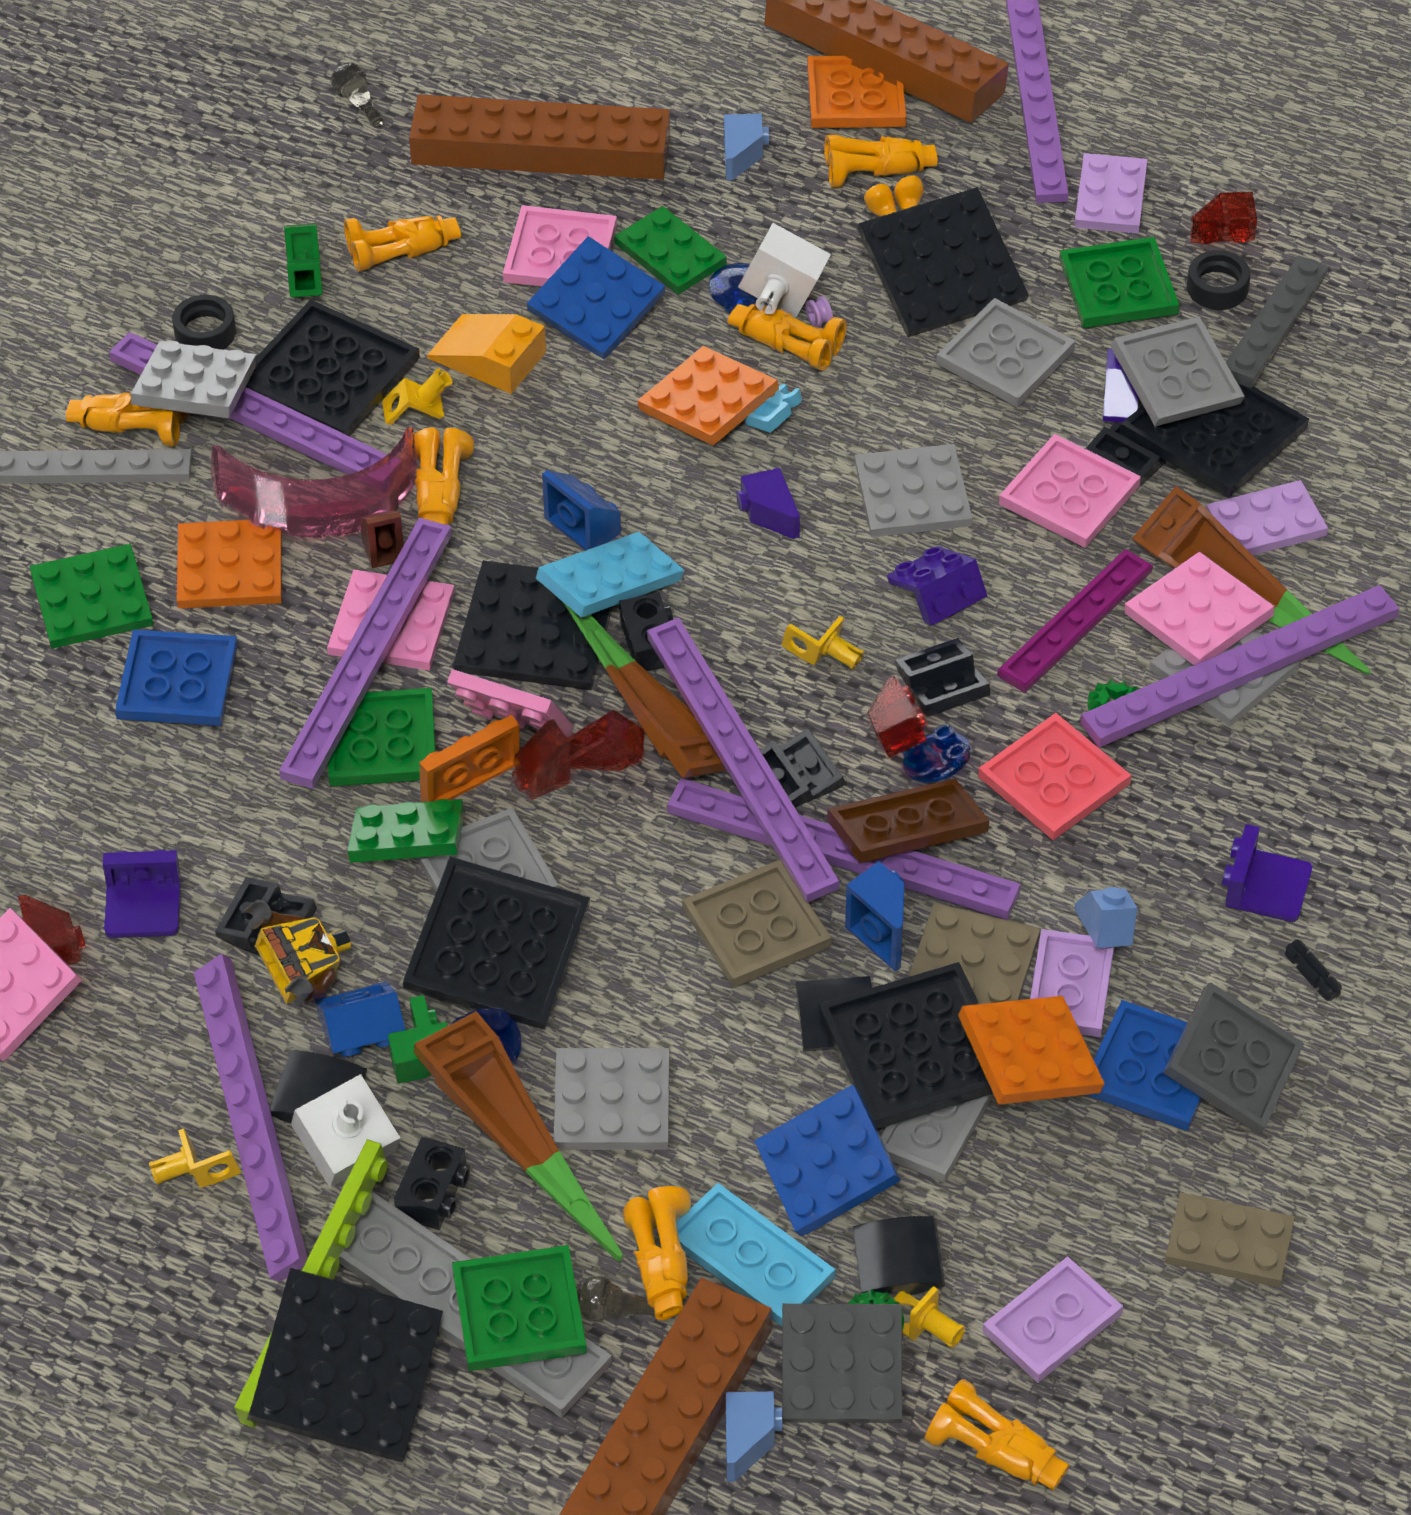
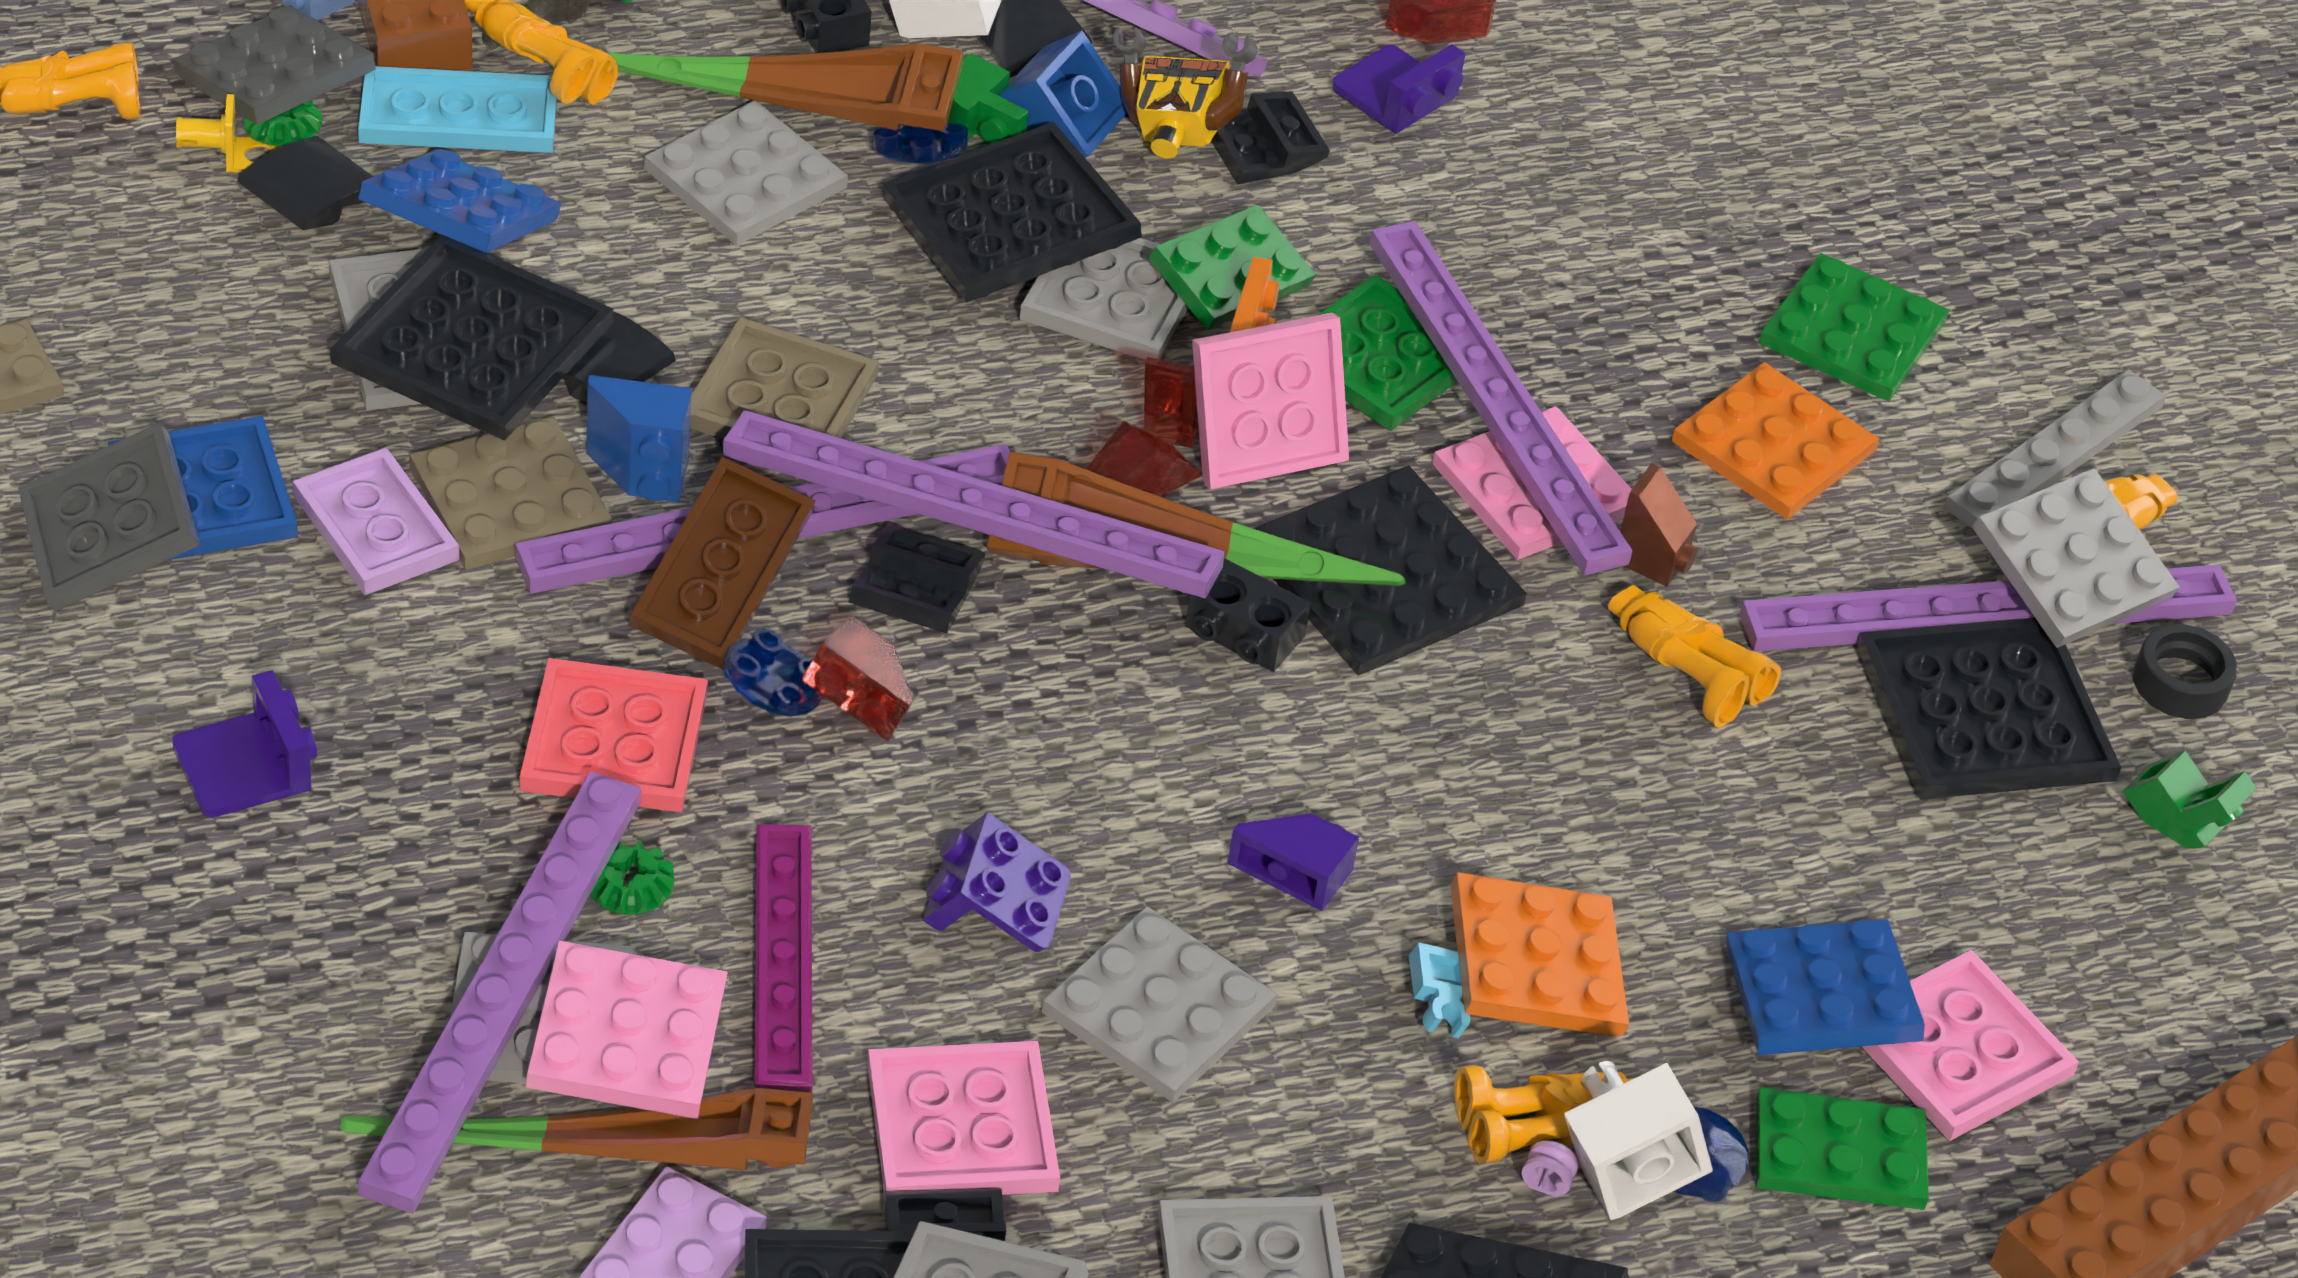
camera: 130 degrees right, 5 degrees down
(176, 677) = (1654, 291): blue plate -> none
(317, 505) = (1727, 551): clear pink windscreen -> none
(408, 236) = (2141, 938): light orange piece -> none
(420, 397) = (1839, 732): yellow bracket -> none
(492, 348) = (1852, 848): light orange slope -> none
(579, 510) = (1490, 686): blue slope -> none
(609, 574) = (1362, 636): medium azure plate -> none
(828, 644) = (1032, 729): yellow bracket -> none
(942, 677) = (869, 783): black slope -> none
(1031, 1049) = (339, 384): orange plate -> none
(1052, 1319) = (97, 207): lavender plate -> none
(1108, 916) = (395, 584): medium blue slope -> none
(1313, 970) = (104, 696): black axle -> none

